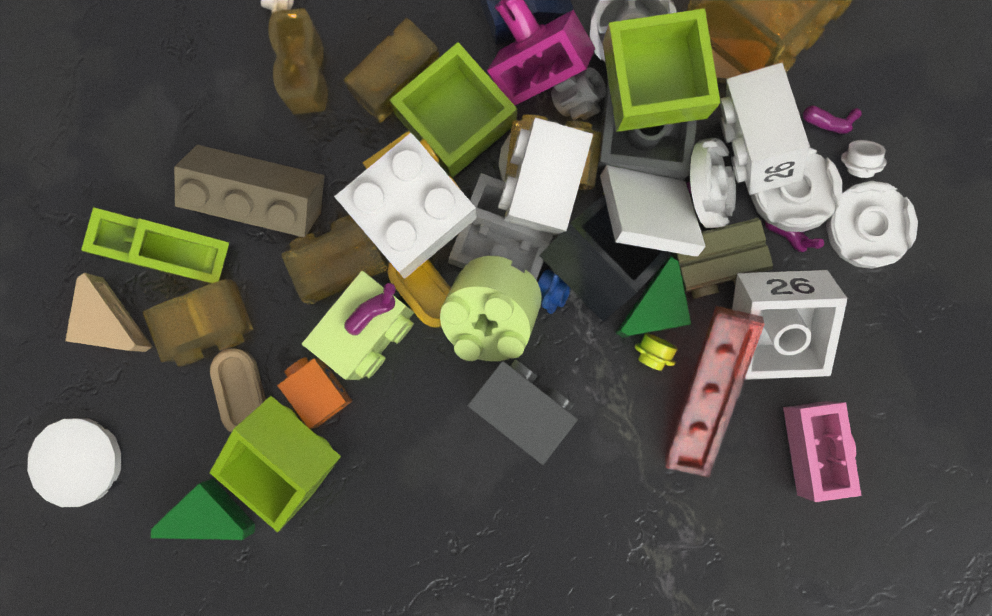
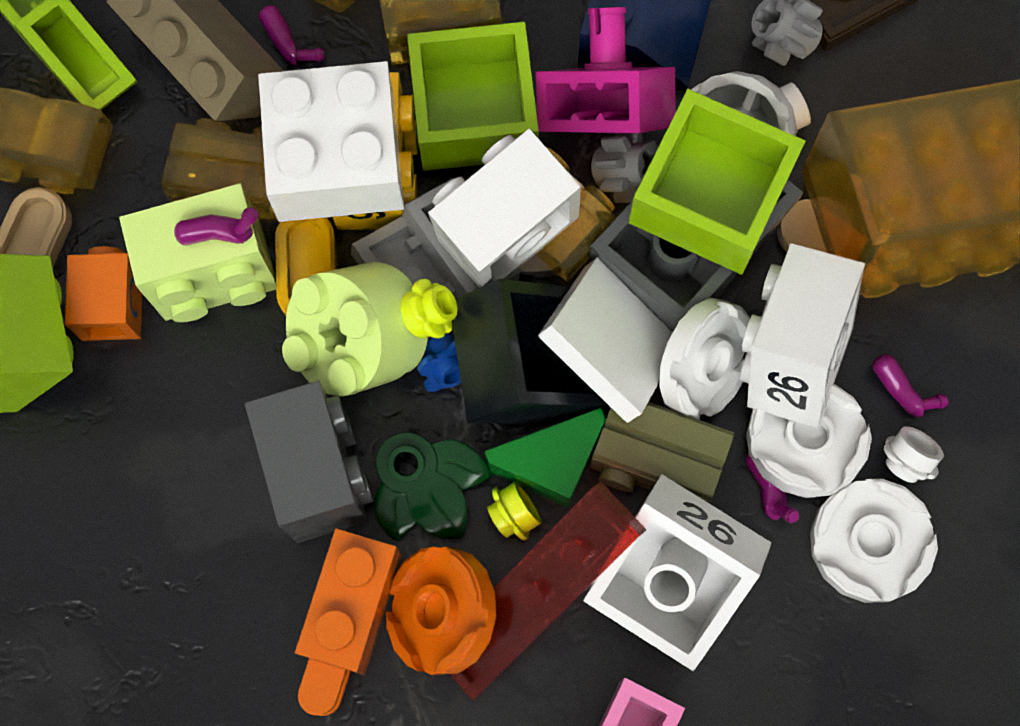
camera: 35 degrees right, 10 degrees down
(298, 151) = (282, 37): none -> magenta piece
(532, 269) = (428, 309): none -> neon yellow plate
(599, 371) = (432, 492): none -> dark green plate
(606, 484) = (344, 617): none -> orange brick
(659, 440) = (441, 610): none -> orange tile

